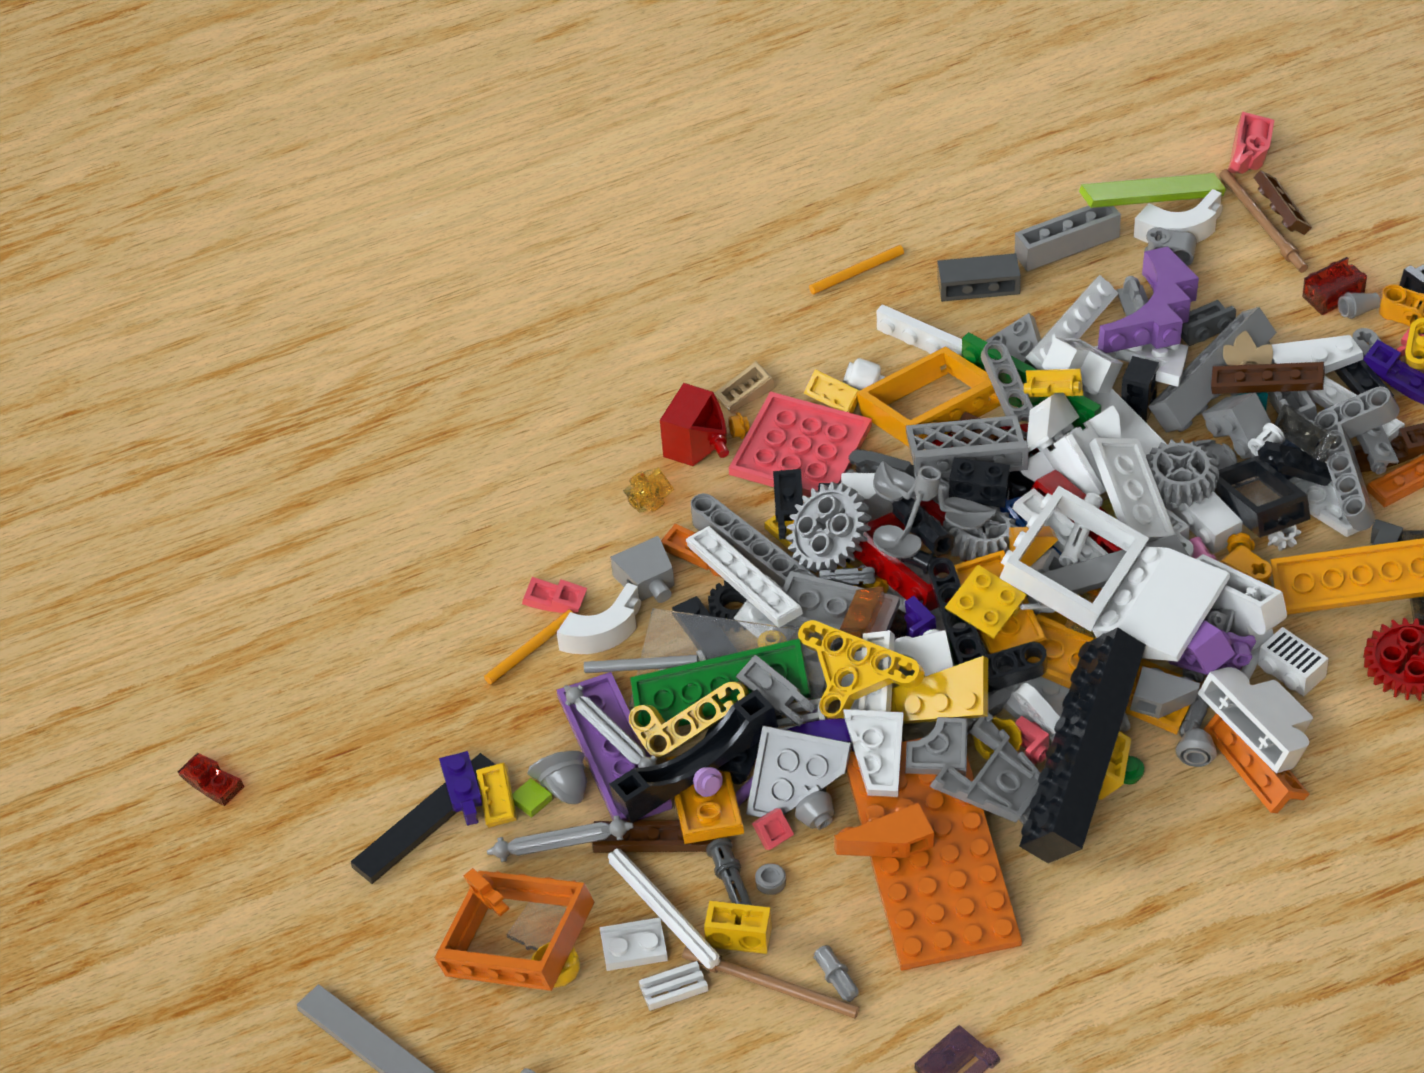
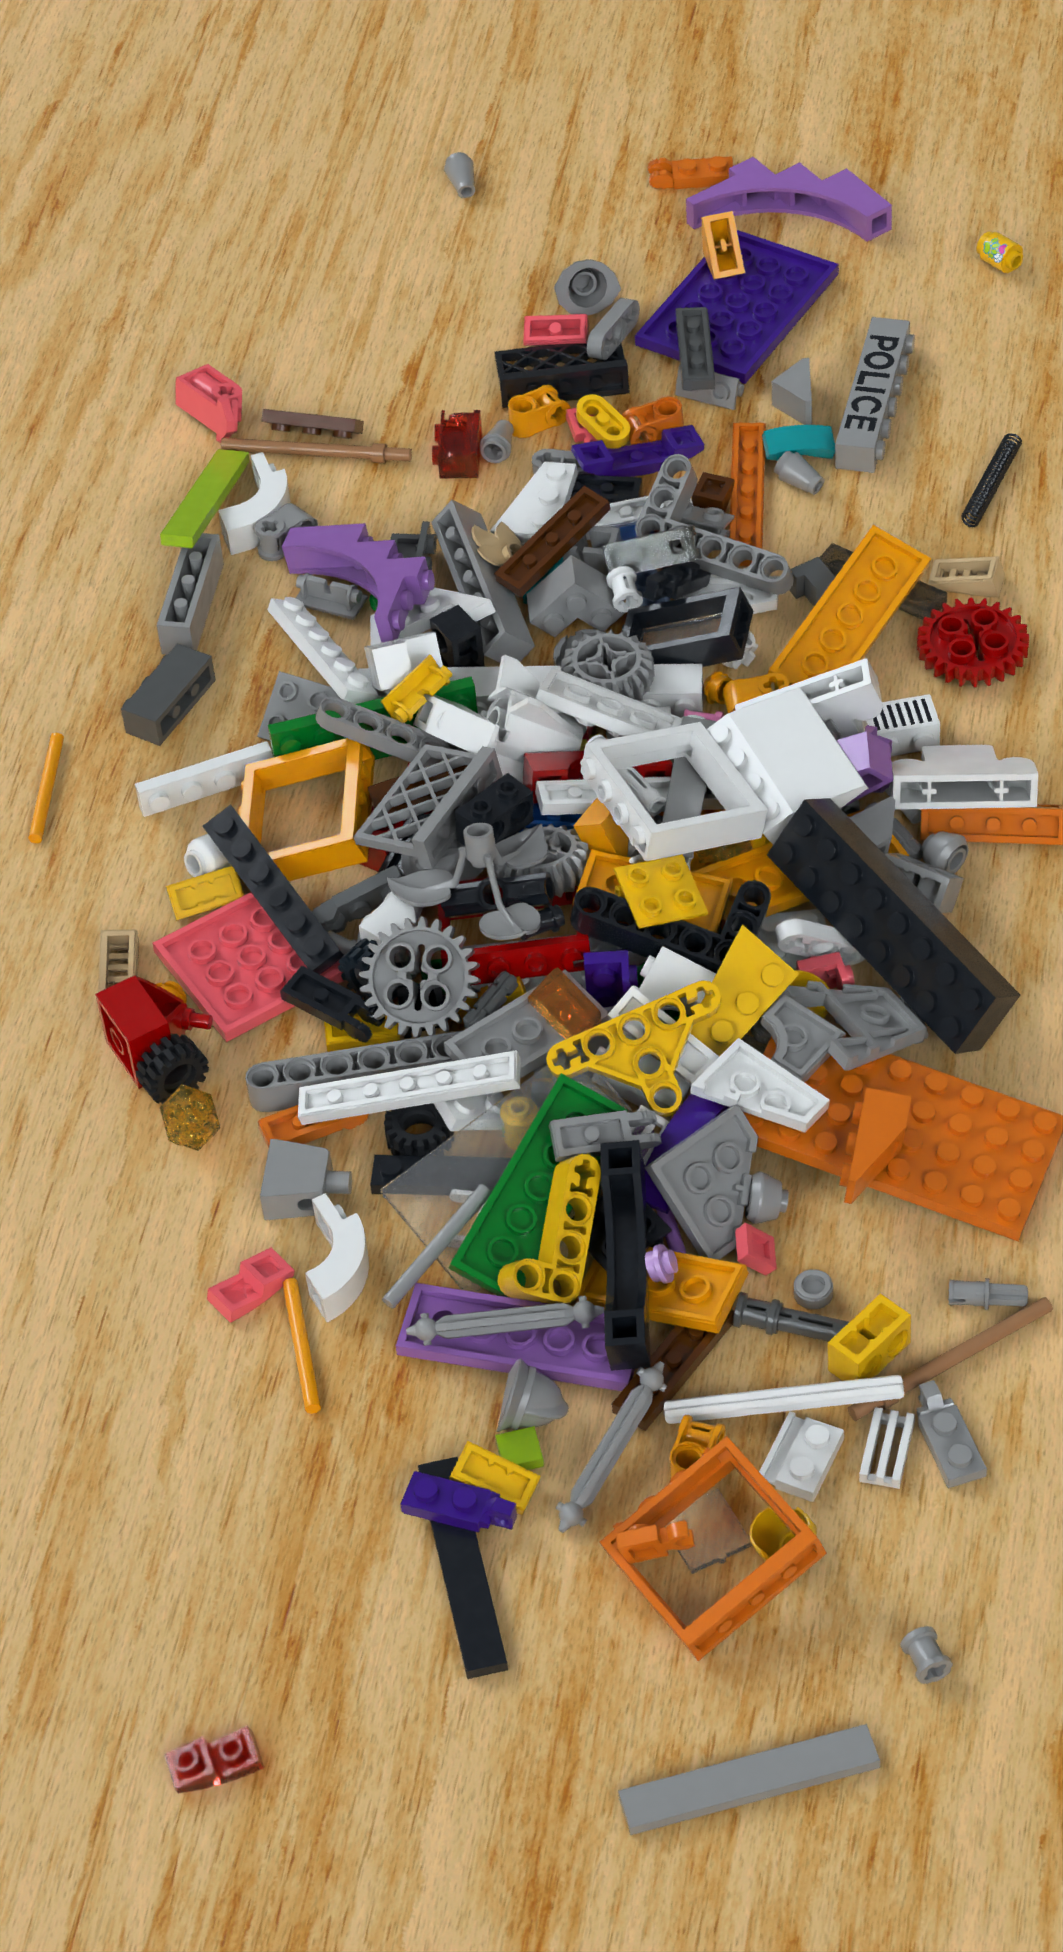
camera: 55 degrees left, 0 degrees up
(596, 881) = (691, 1442): none -> light orange piece
(675, 458) = (170, 1065): none -> black tyre
(705, 1014) = (948, 1438): none -> light grey hinge
(848, 419) = (273, 890): none -> black plate
(1152, 745) = (936, 884): none -> light grey brick

